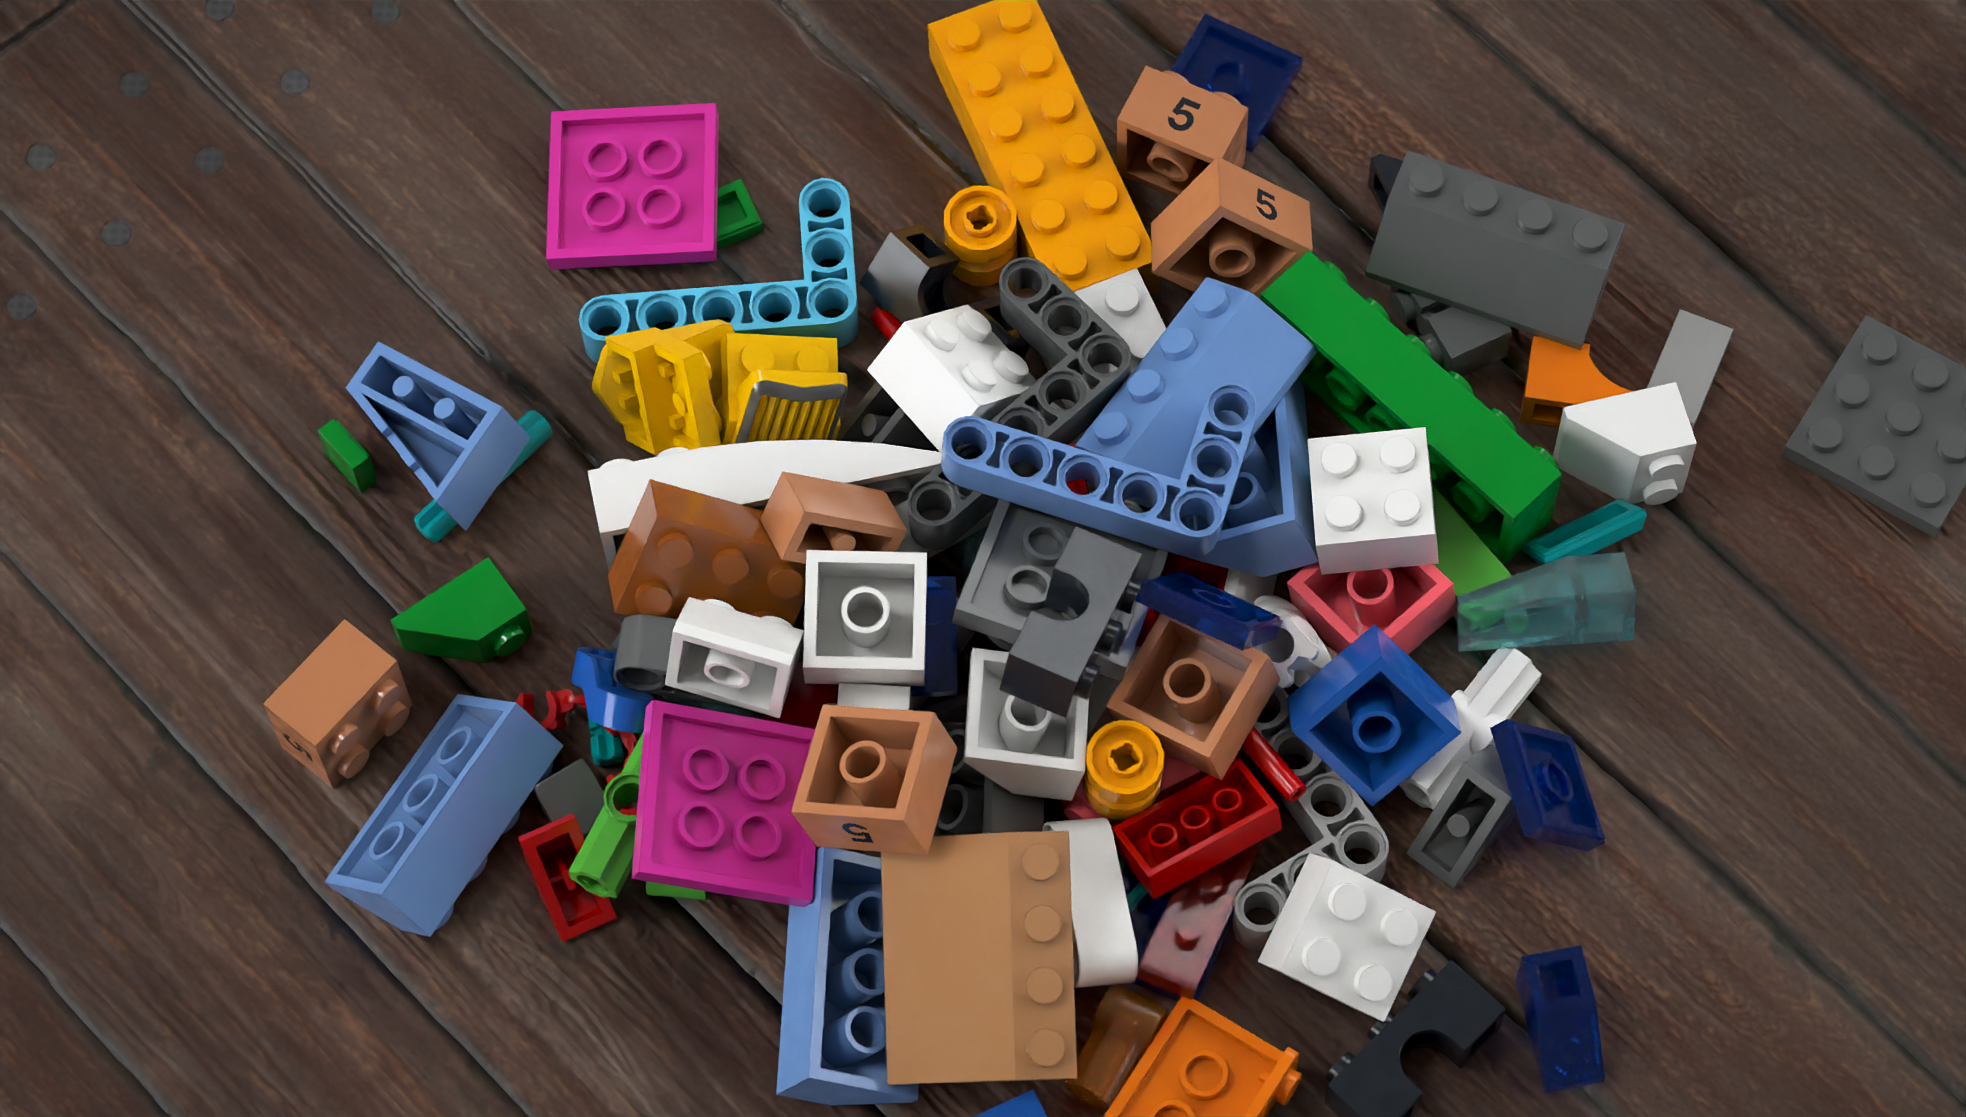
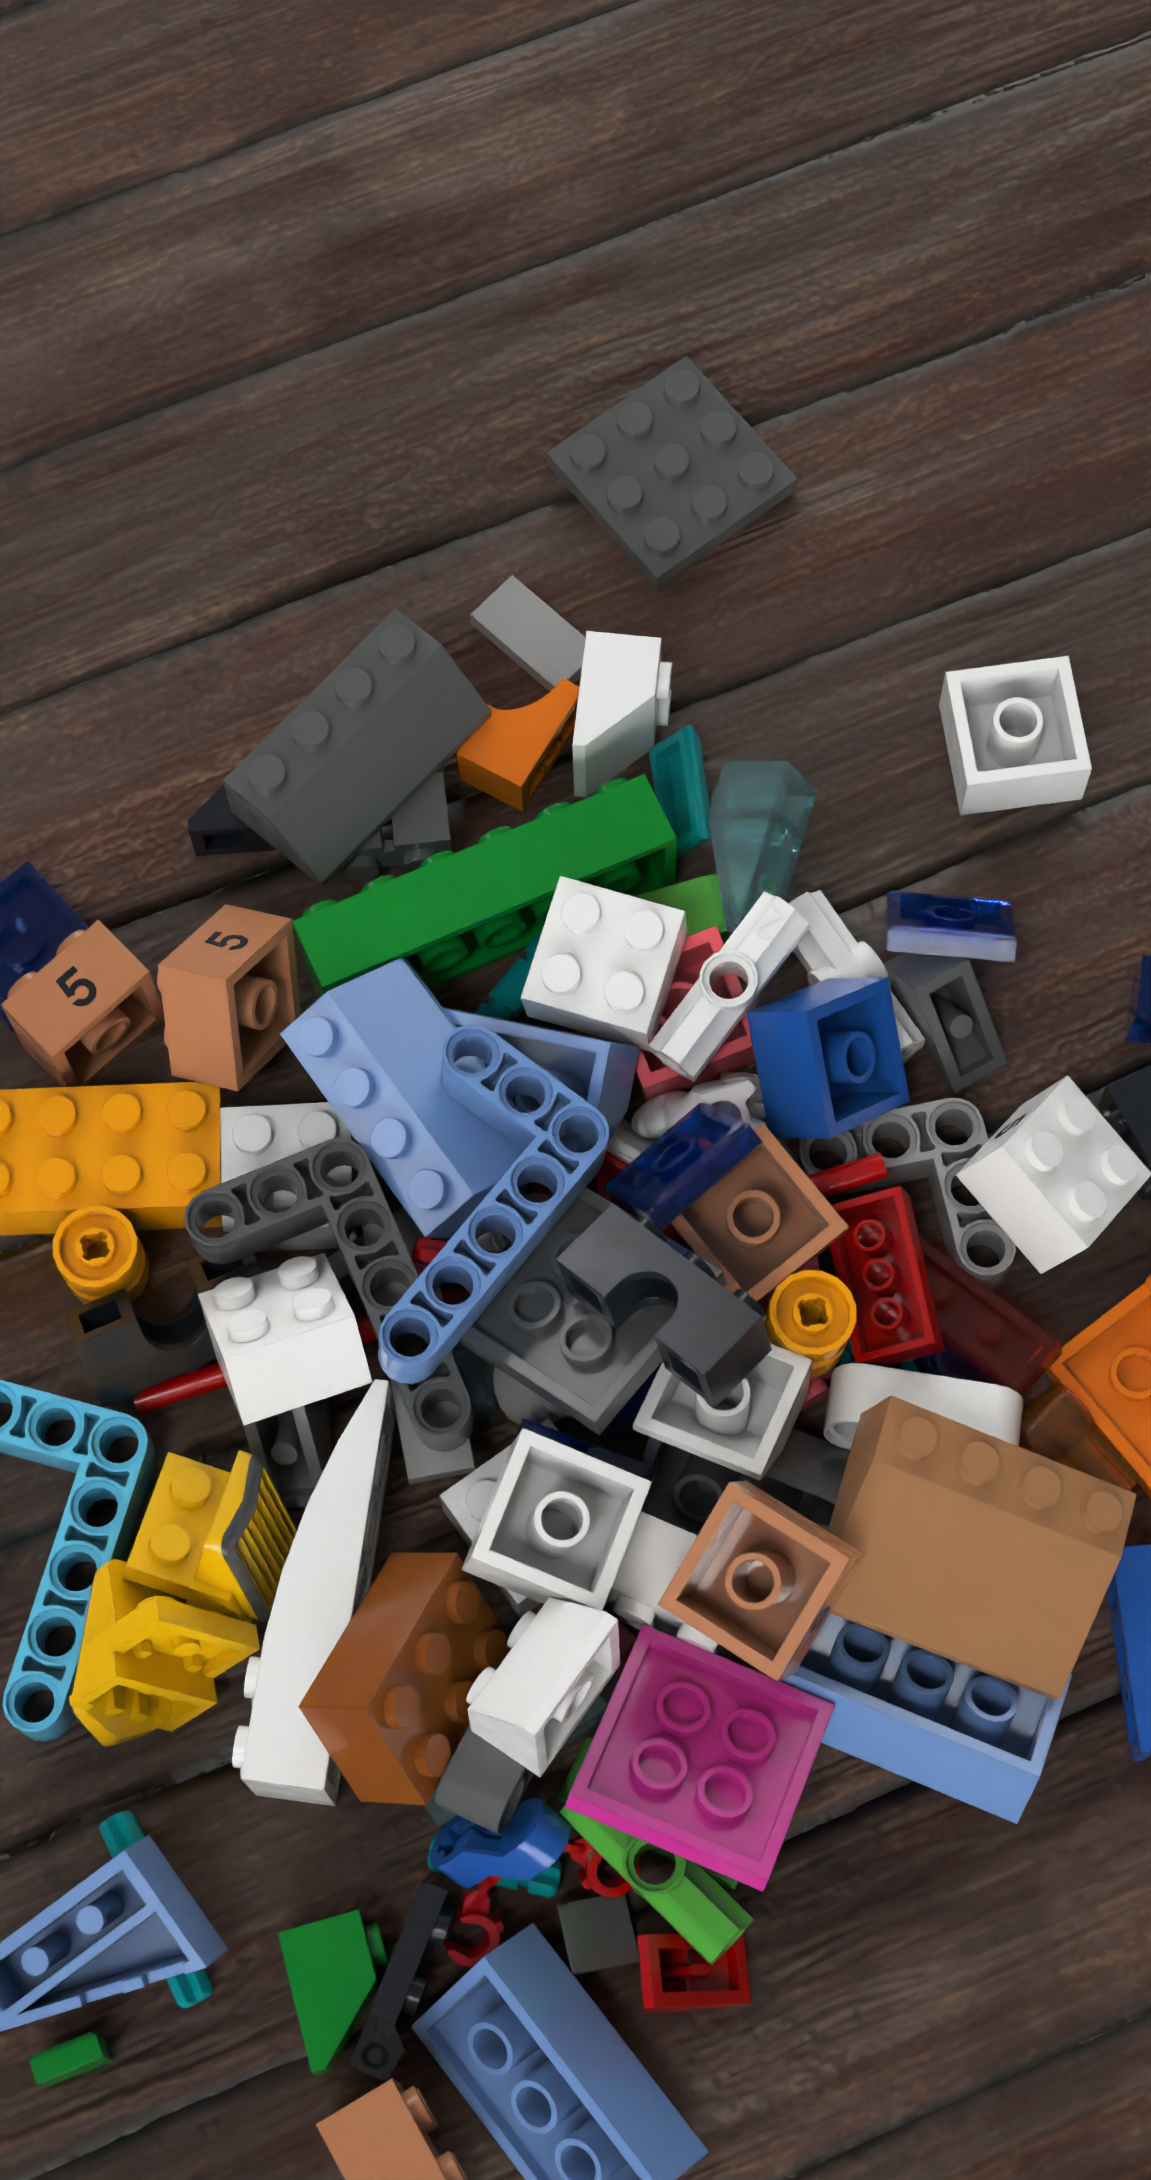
camera: 70 degrees left, 5 degrees up
(487, 666) = (402, 1985): none -> black hinge
(829, 516) = (419, 1526): nougat brick -> none
(1431, 610) = (752, 953): none -> white piece
(1758, 783) = (1014, 735): none -> white brick

